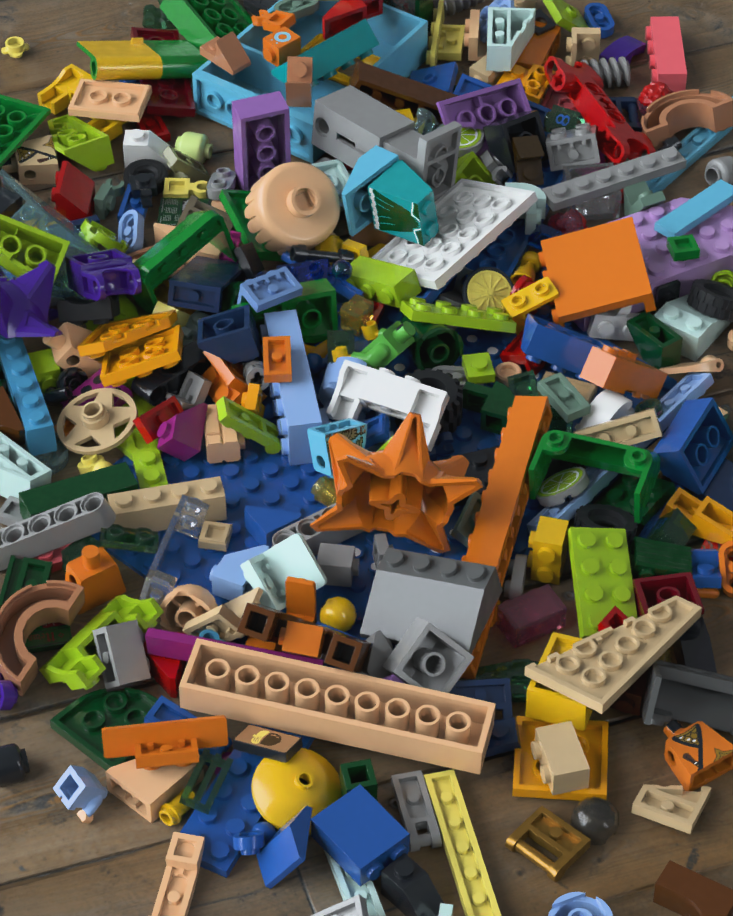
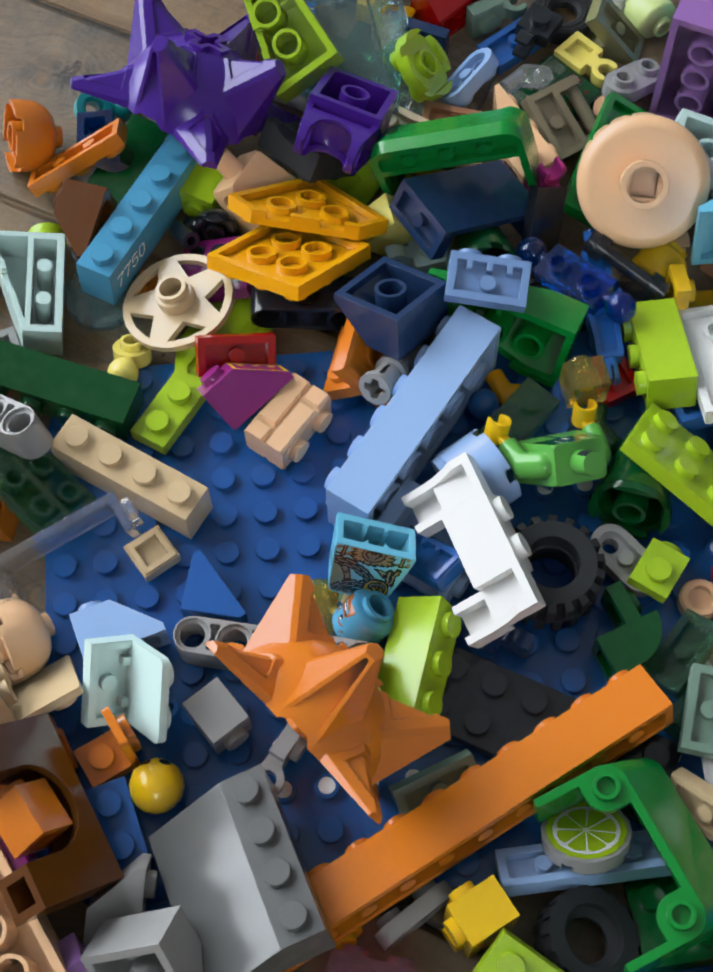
camera: 45 degrees right, 20 degrees up
(165, 212) = (527, 76): none -> clear arm
(193, 390) = (310, 344): light grey bracket -> none
(248, 424) = (305, 434): lime plate -> none
(253, 399) = (346, 412): light orange plate -> none
(277, 359) = (397, 386): orange plate -> none

